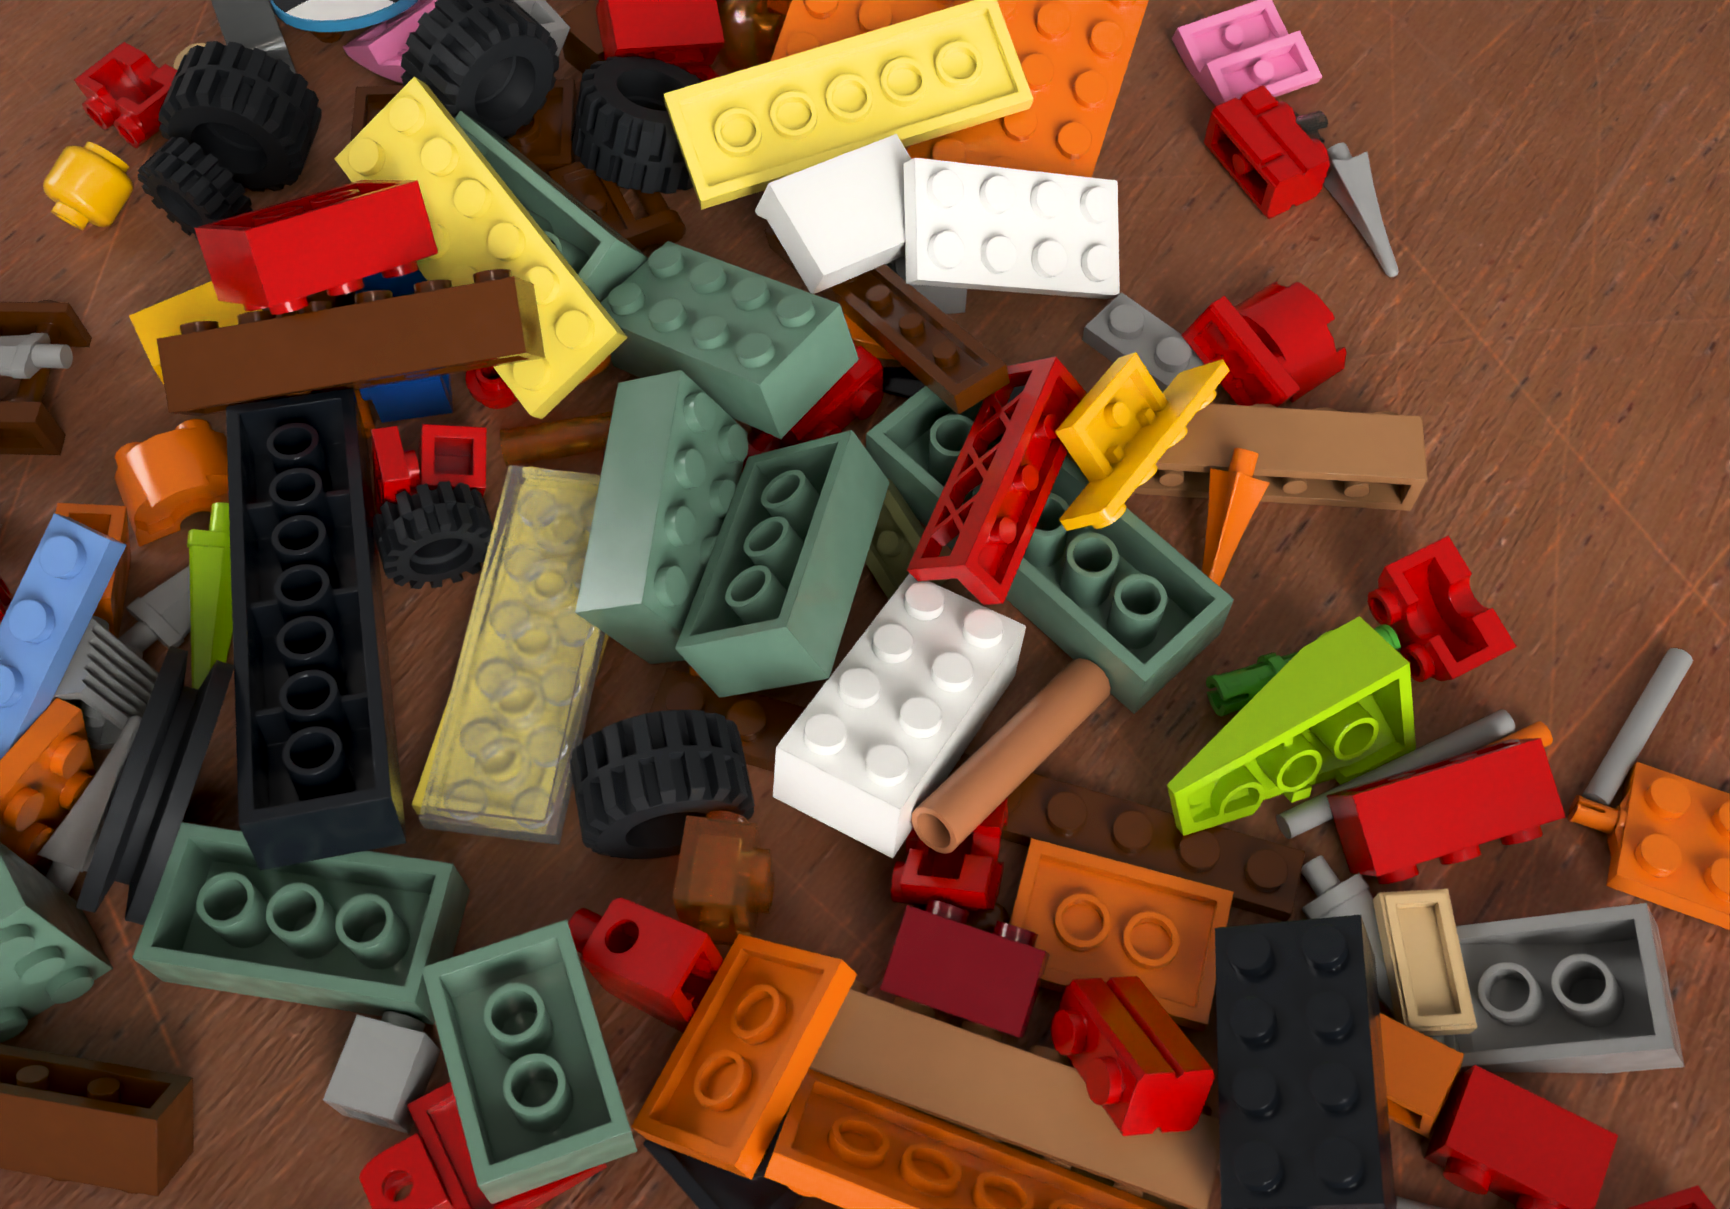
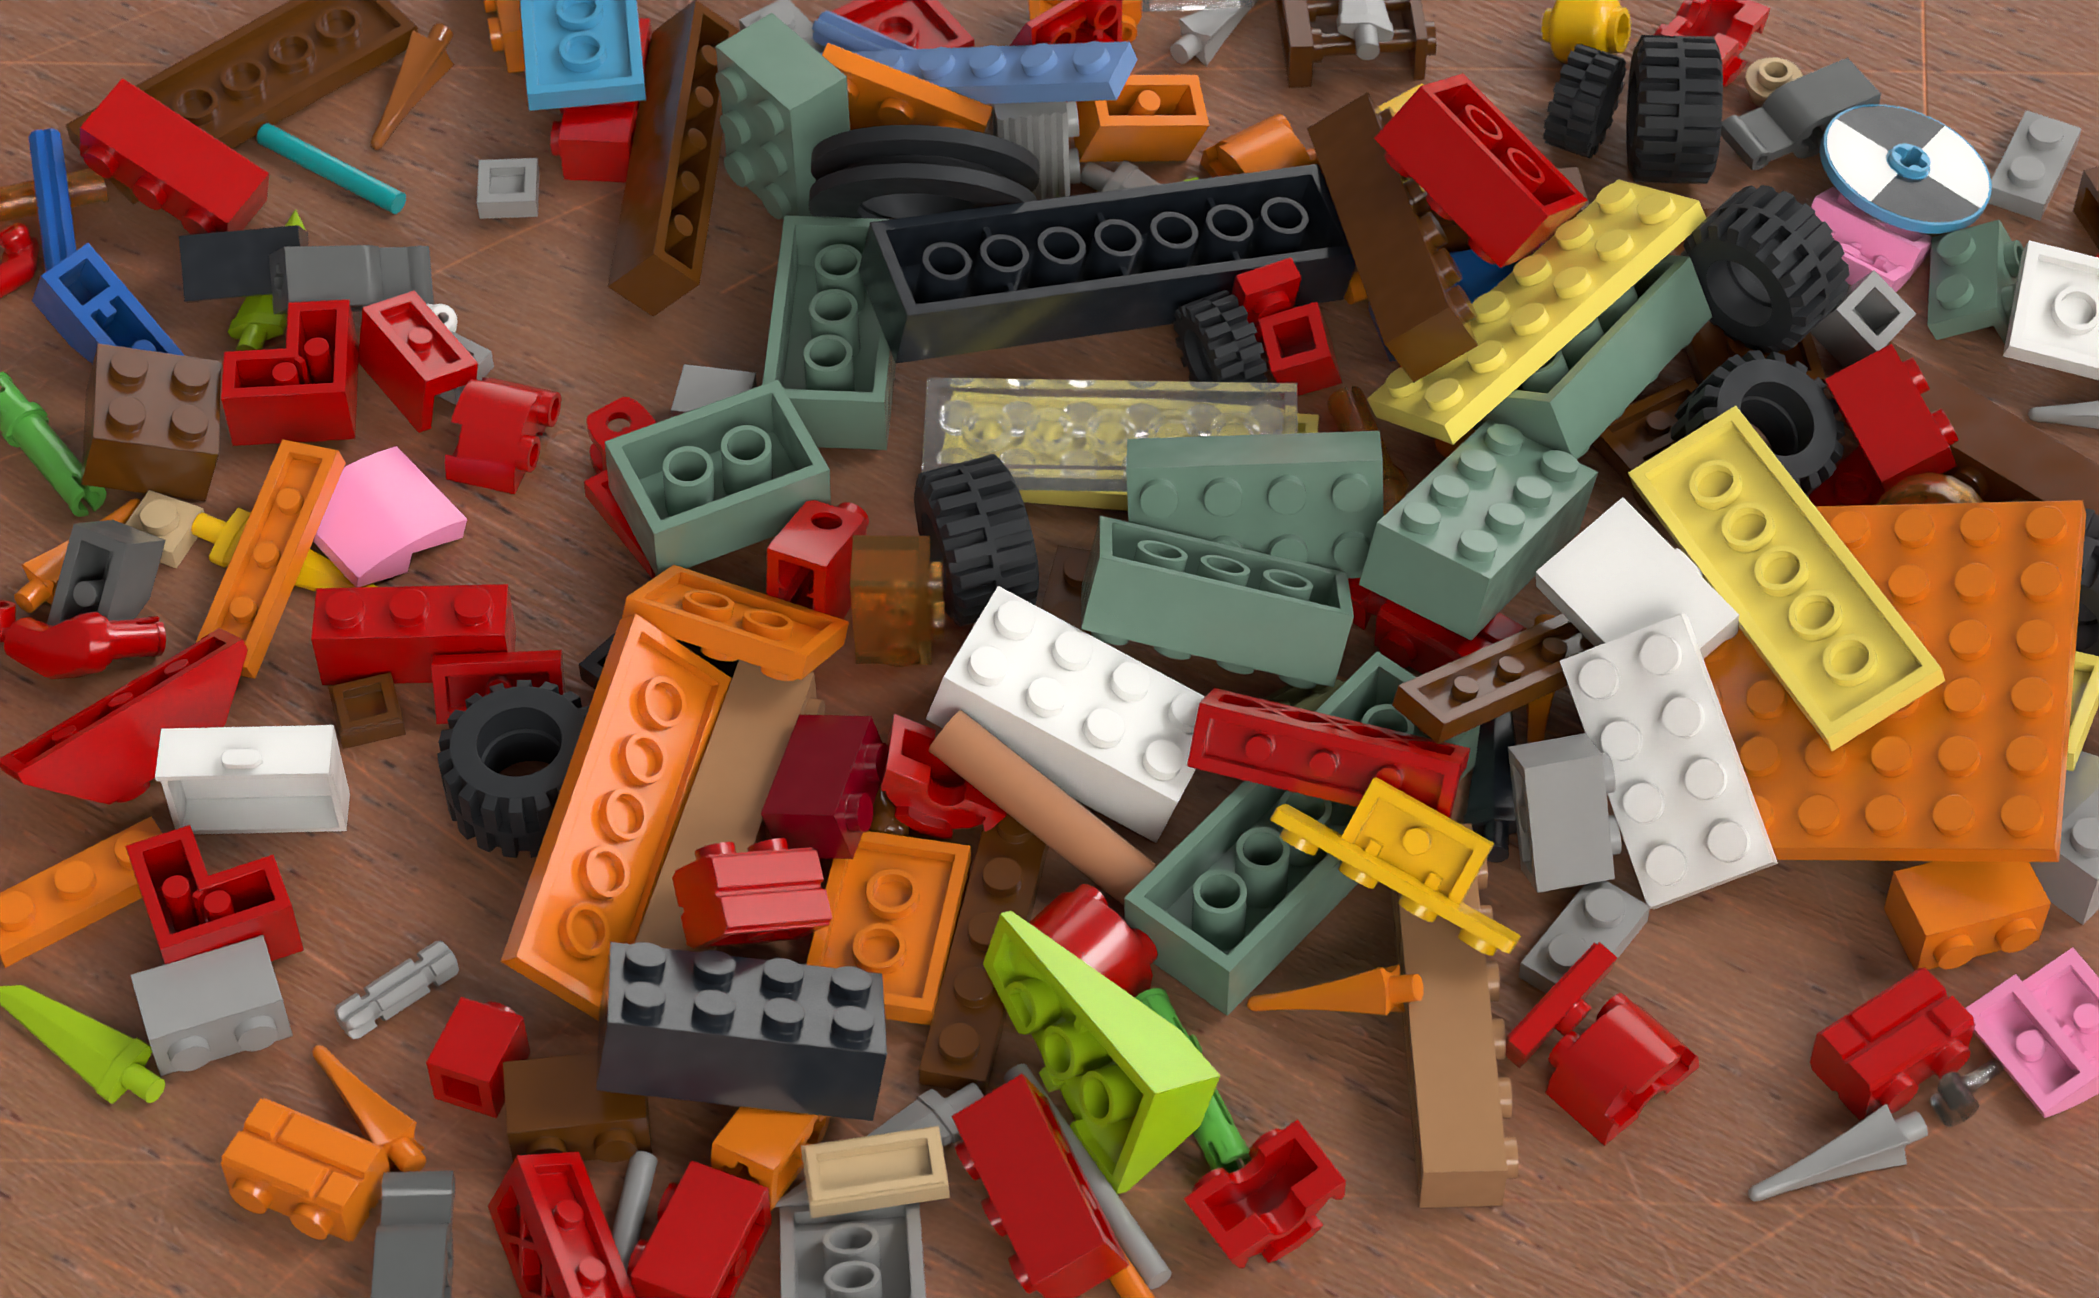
camera: 85 degrees right, 10 degrees down
(1046, 317) = (1564, 812): none -> light grey brick
(1150, 94) = (1965, 910): none -> orange brick
(1157, 742) = (1099, 938): none -> red cylinder

